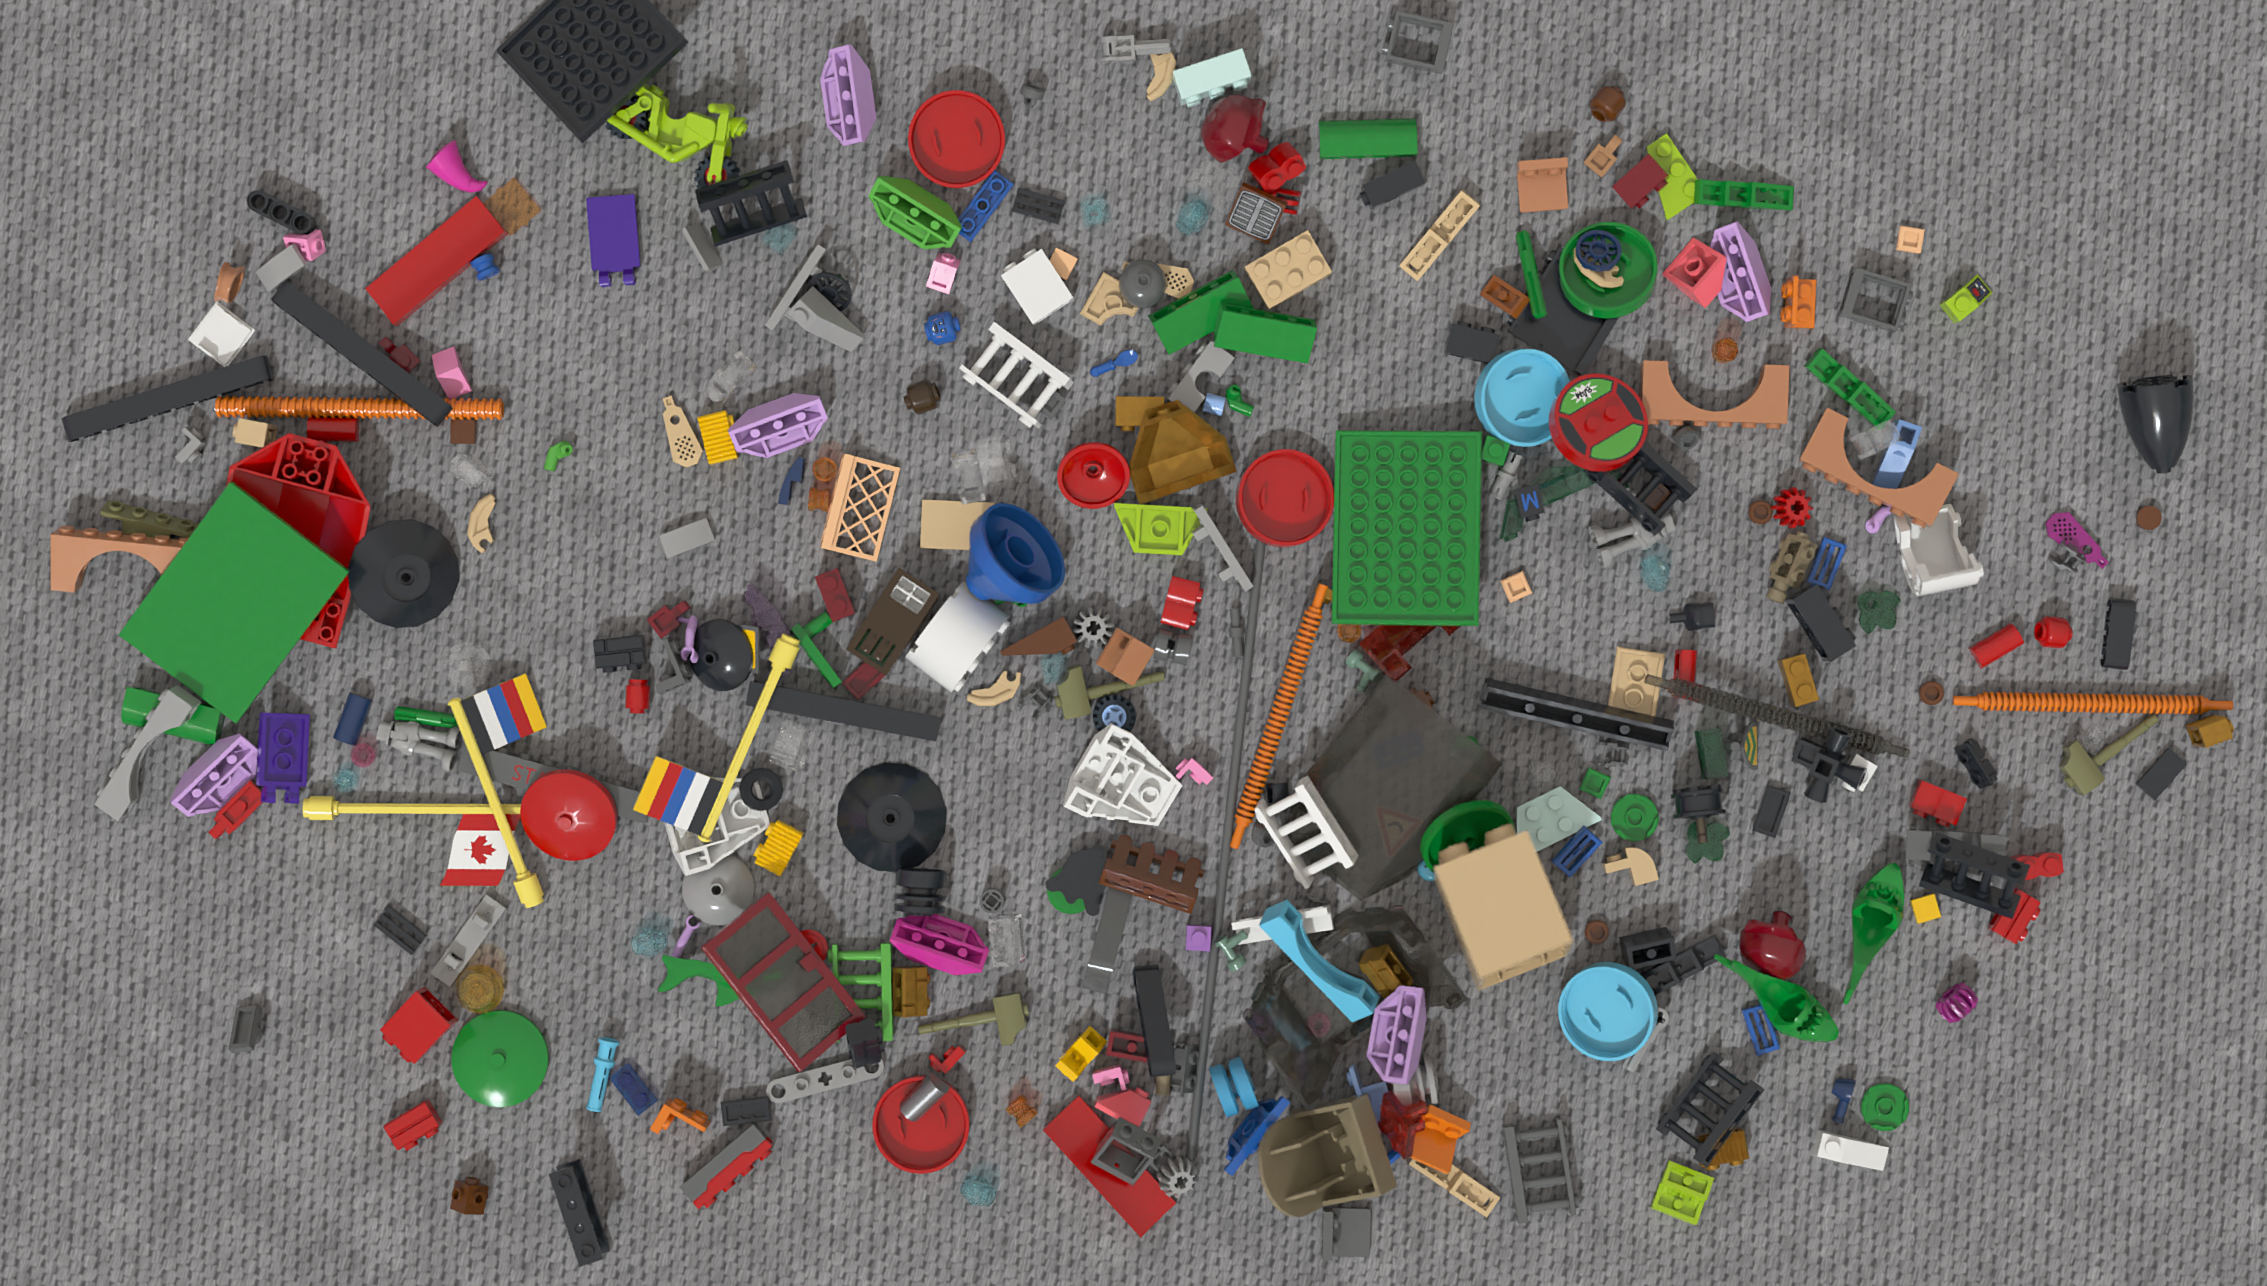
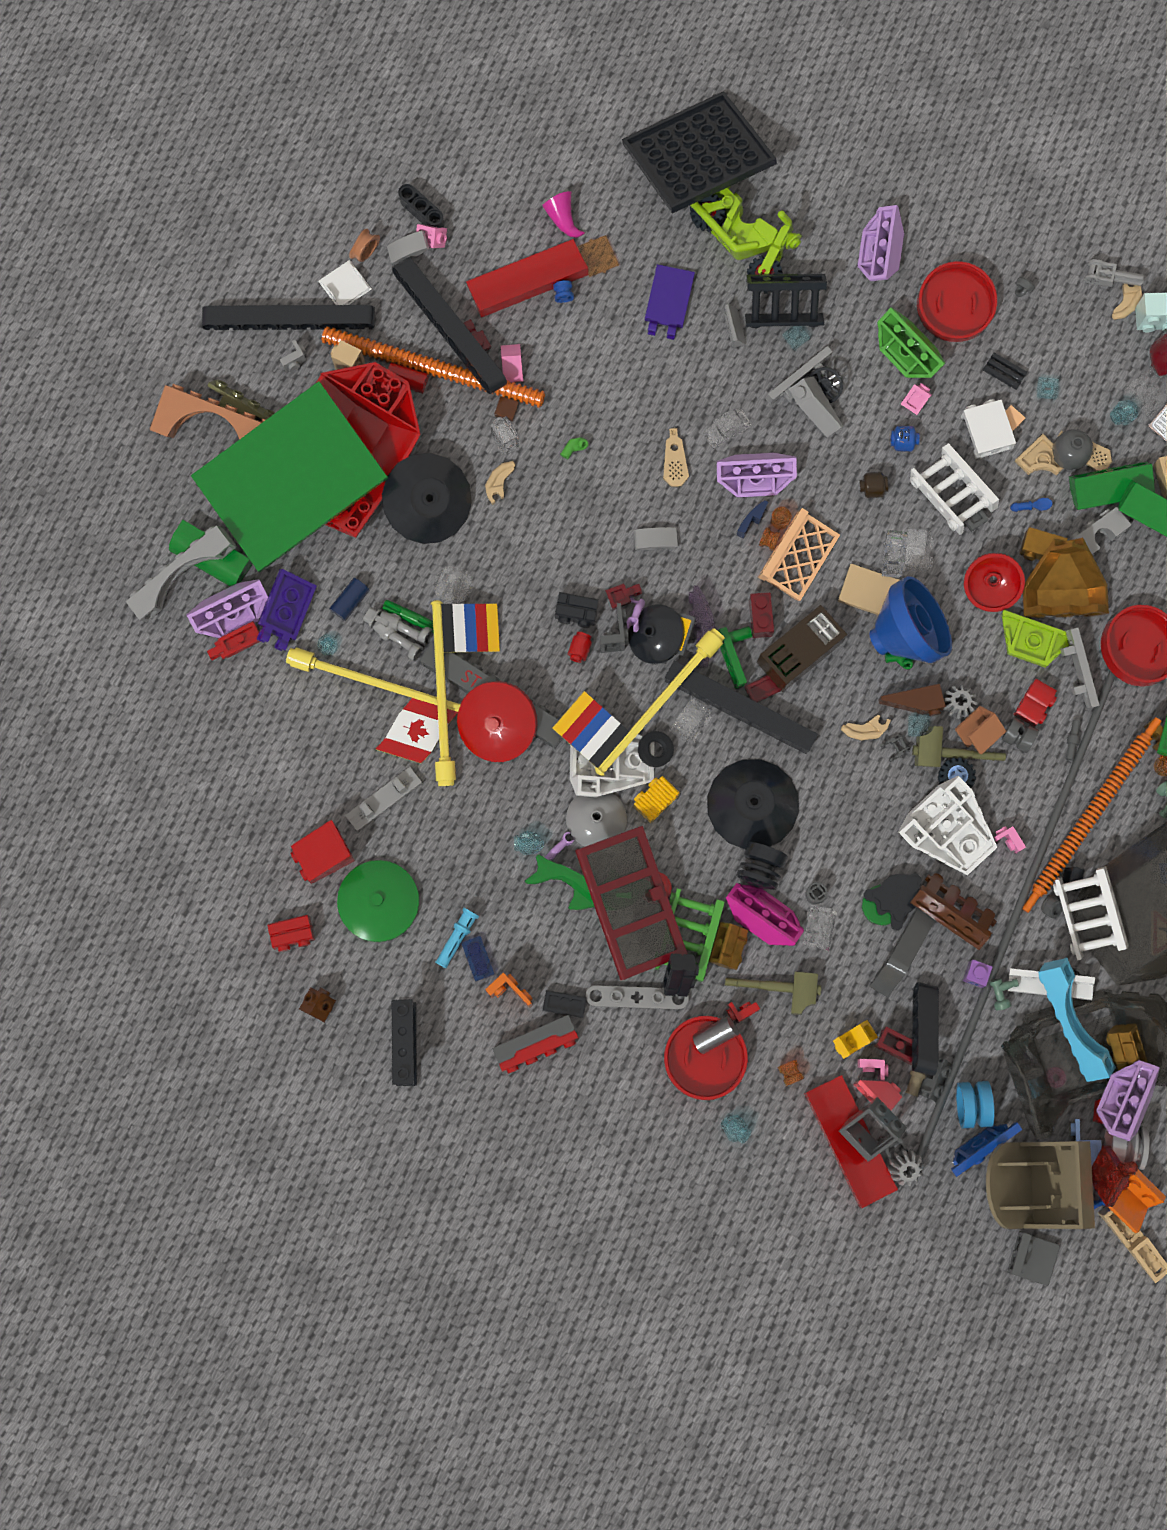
camera: 20 degrees right, 10 degrees down
(245, 1029) = (183, 814): dark grey tile -> none
(356, 758) = (347, 623): clear pink plate -> none
(416, 943) = (322, 761): black tile -> none
(479, 989) = (380, 840): clear yellow cone -> none
(716, 437) = (705, 469): yellow brick -> none
(957, 638) = (847, 677): white cylinder -> none
(992, 193) = (970, 351): blue tile -> none
(1214, 404) = (1103, 558): light blue hose -> none
(1235, 400) = (1120, 561): green arm -> none

